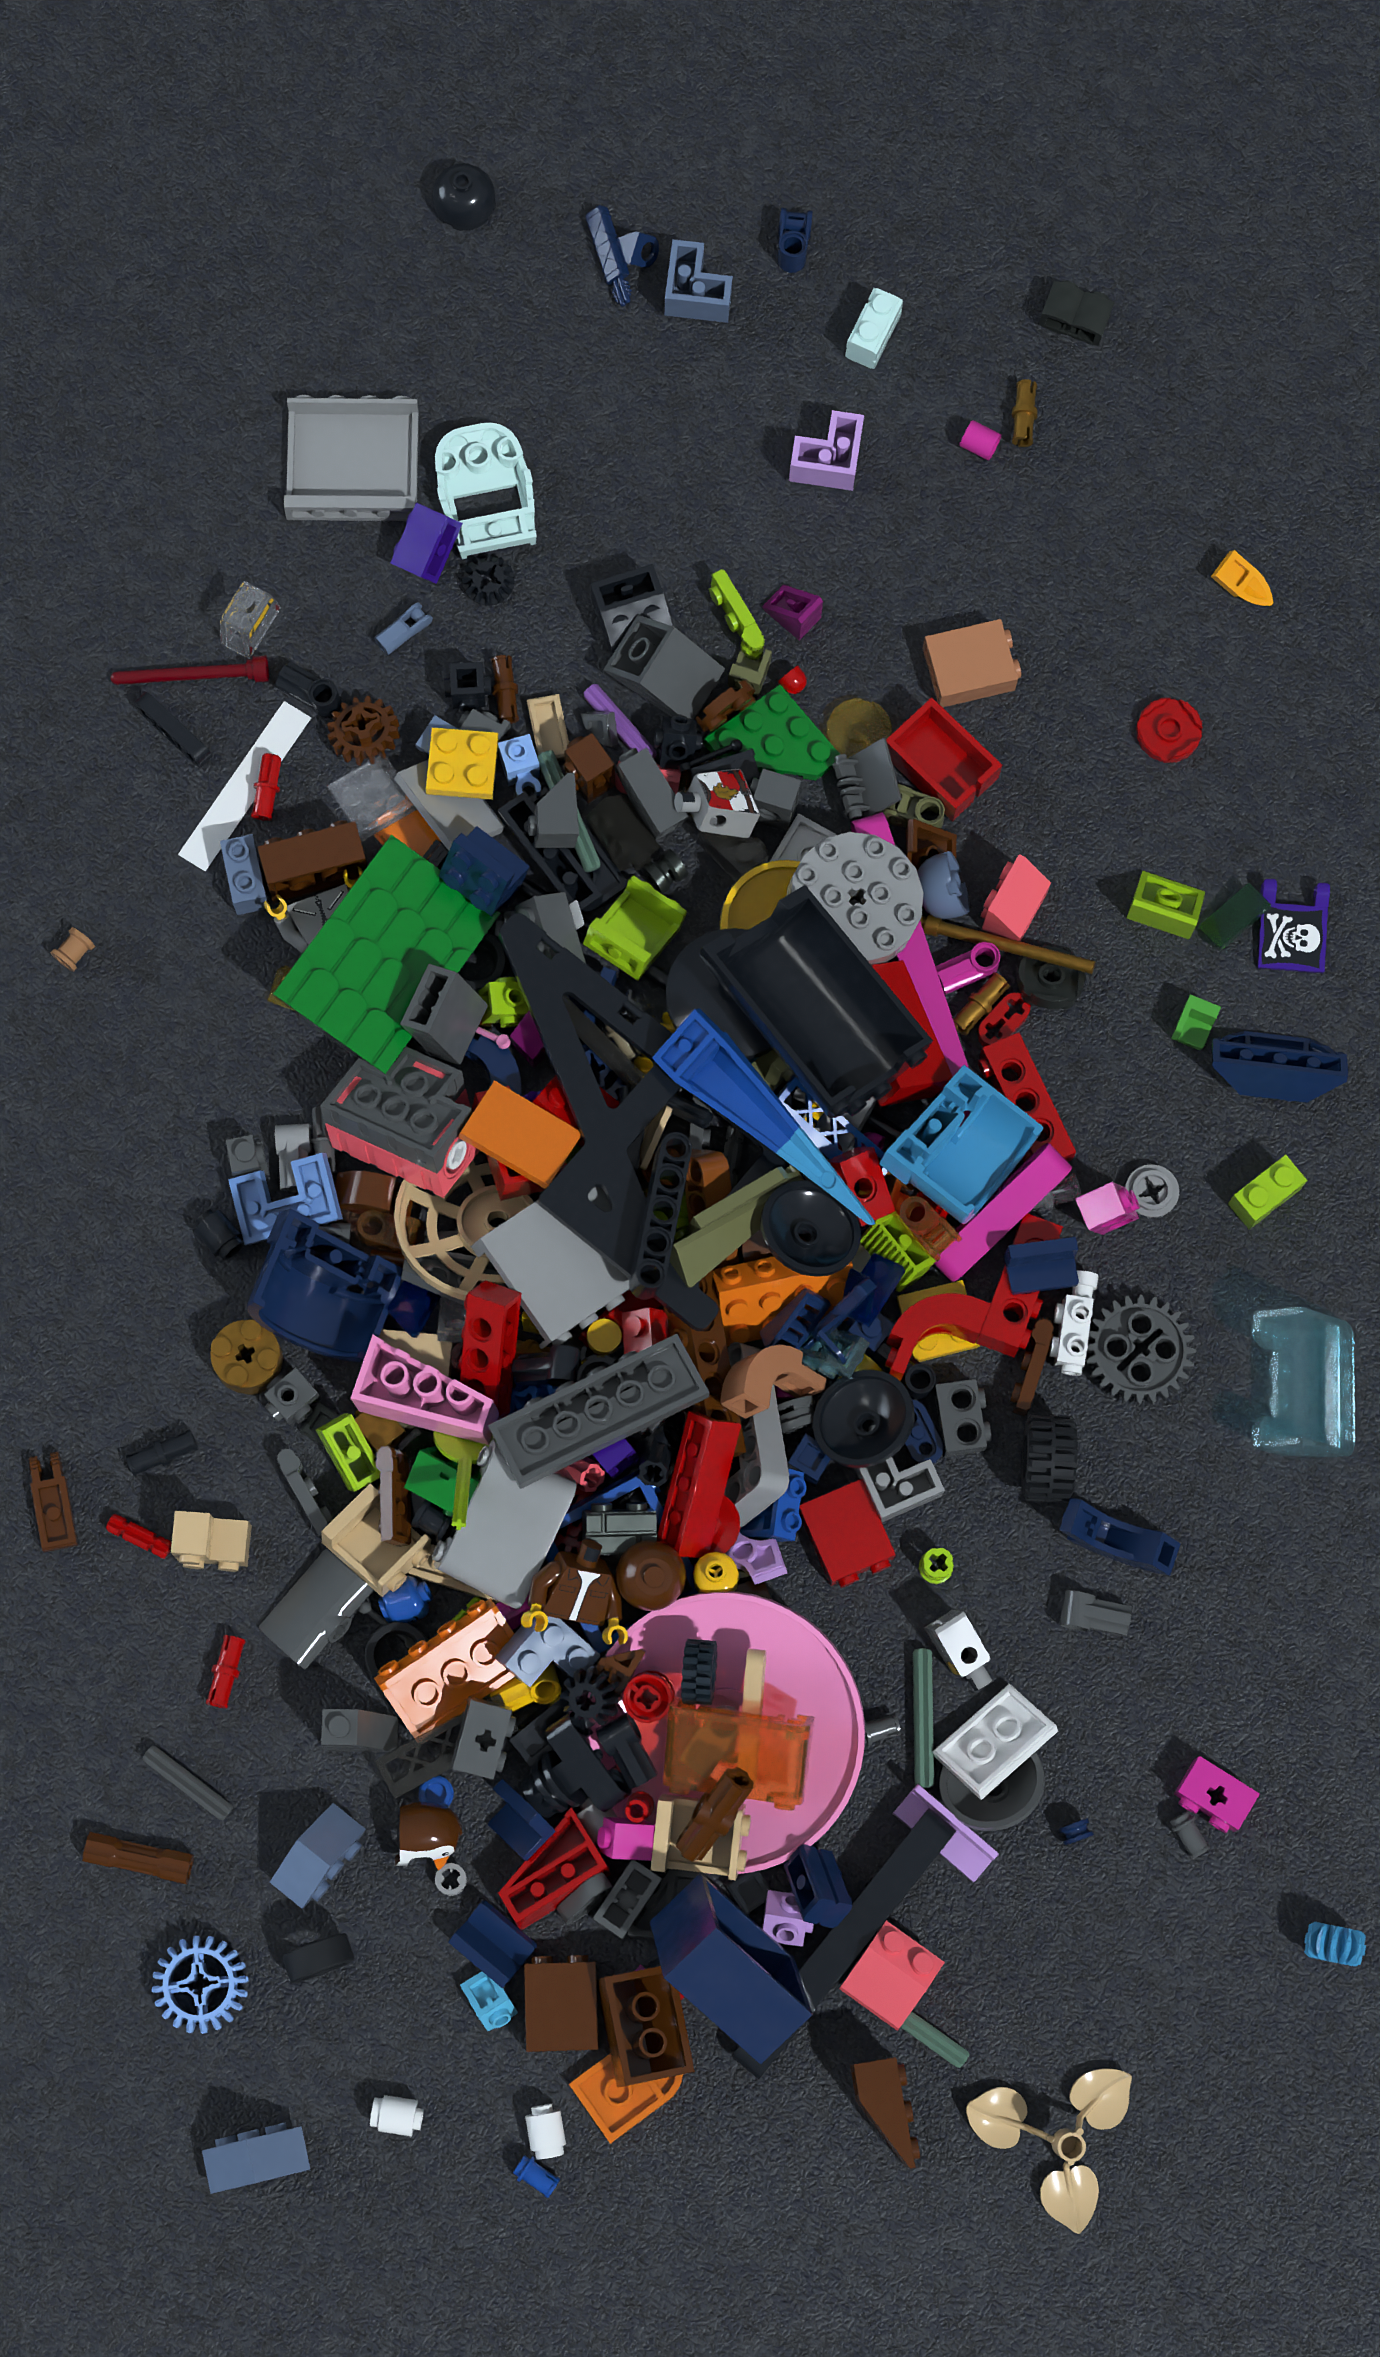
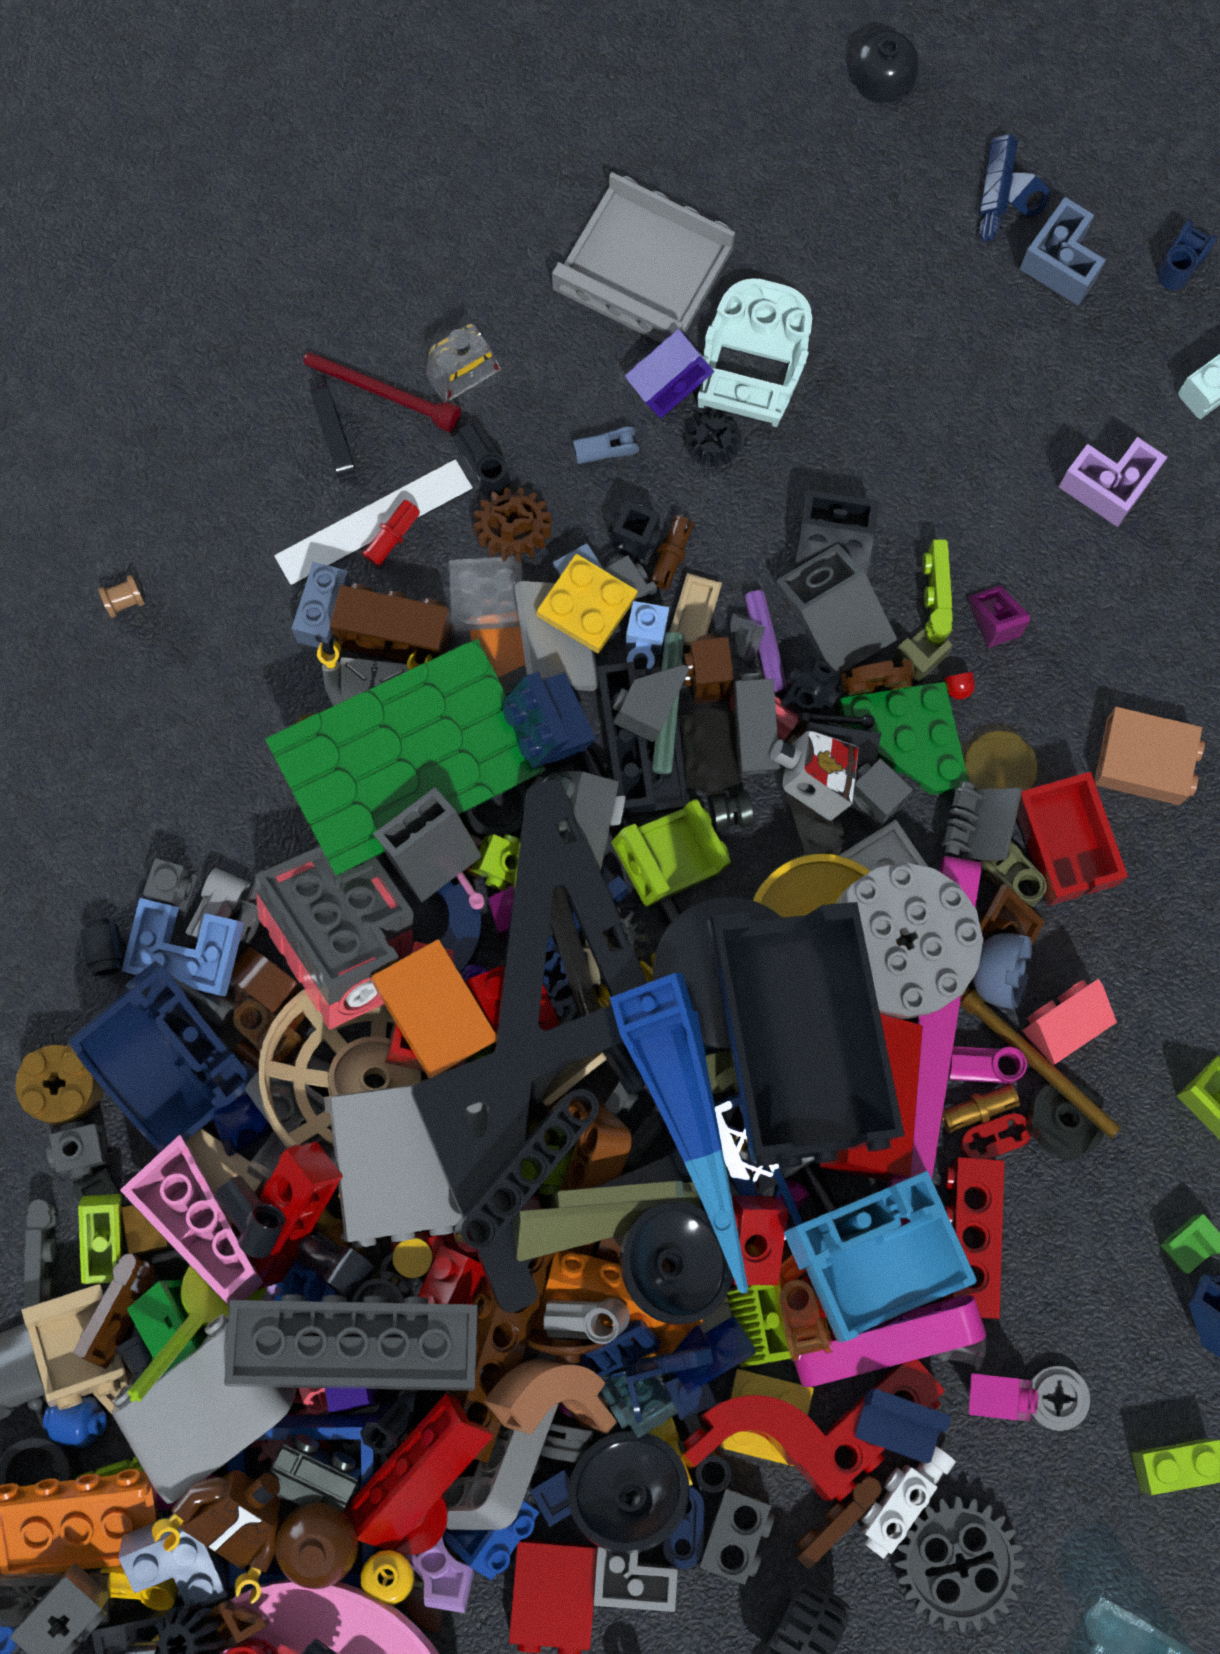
camera: 30 degrees right, 0 degrees up
(473, 1363) = (257, 1221): none -> black piece
(760, 1335) = (566, 1349): none -> reddish brown dish
(761, 1309) = (583, 1319): none -> light grey piece

